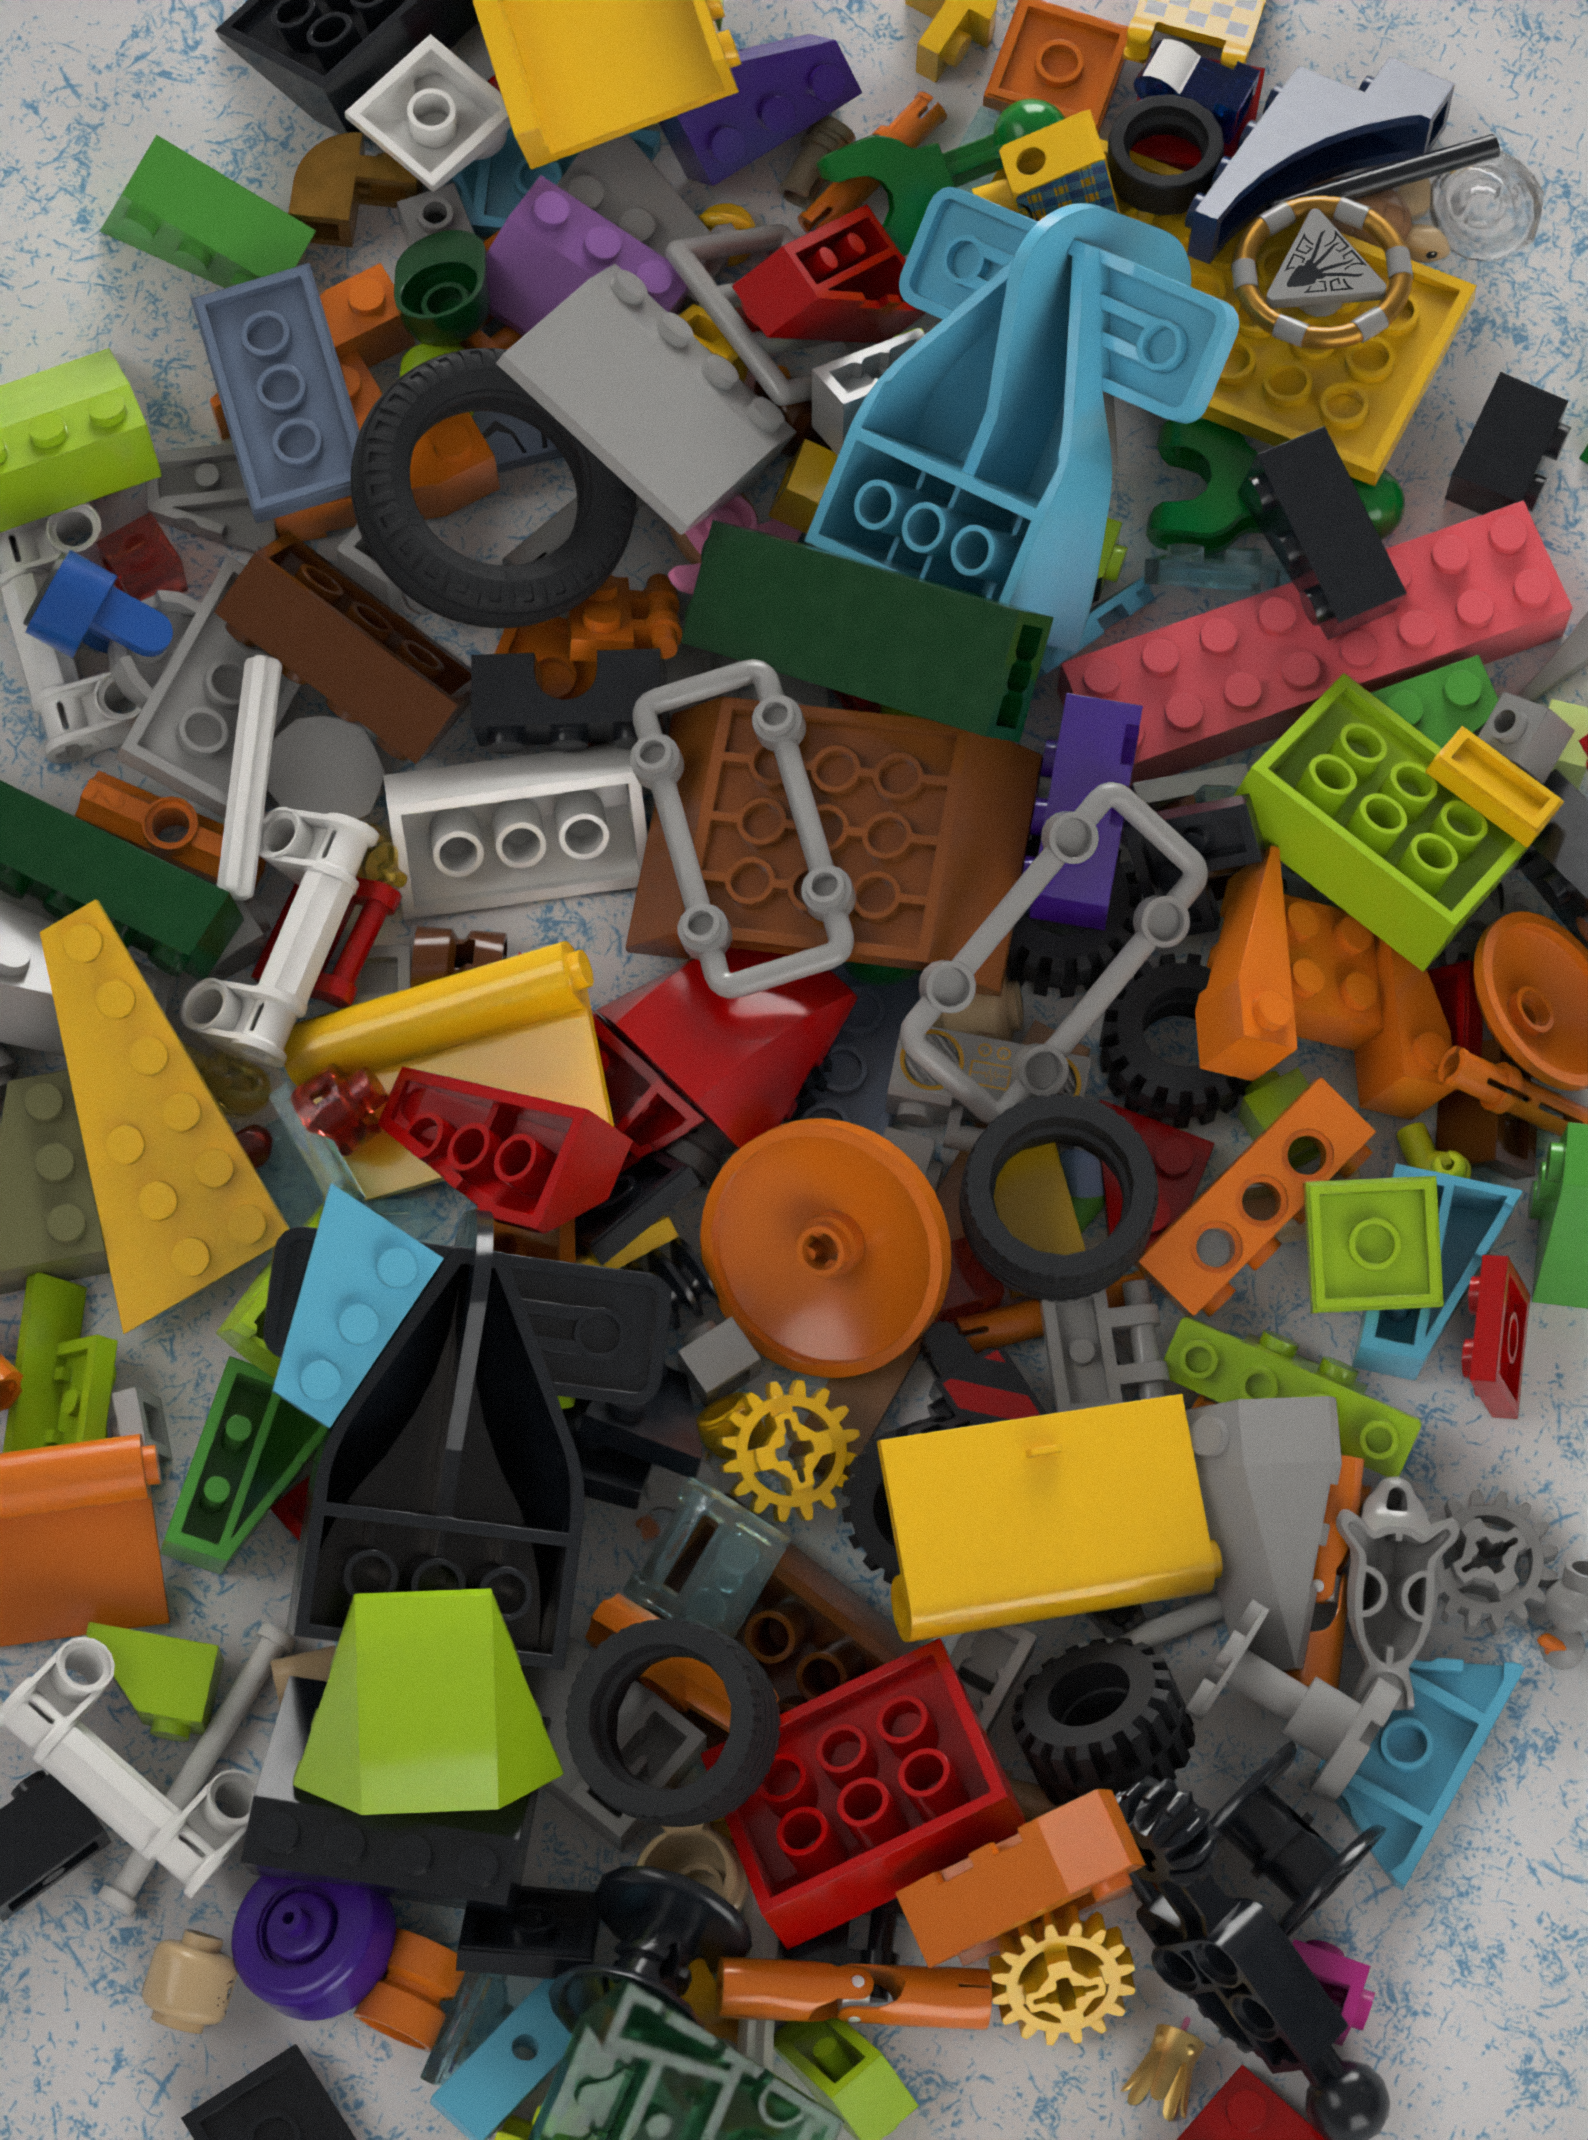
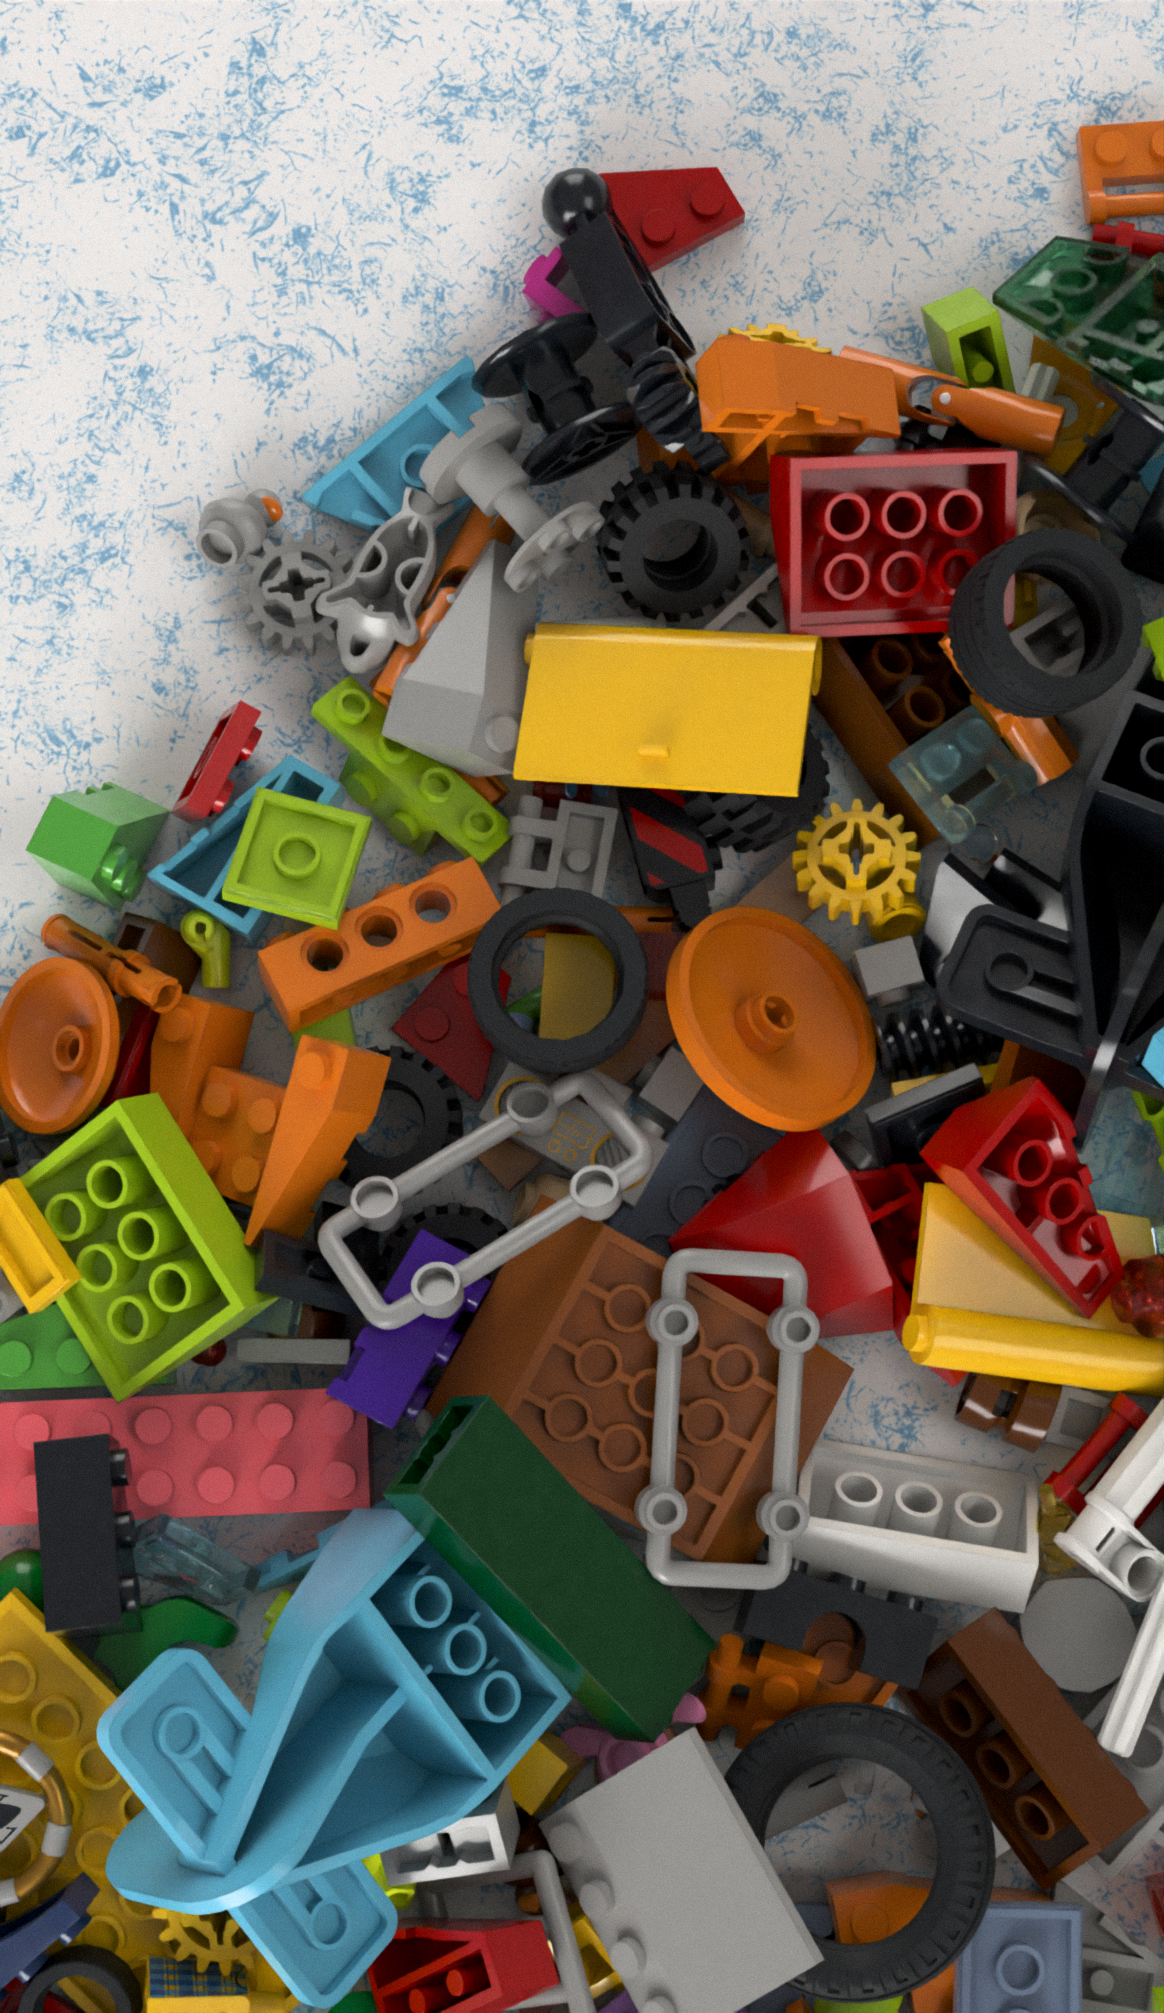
camera: 160 degrees left, 10 degrees up
(1167, 2069) = (696, 288): pearl gold piece -> none

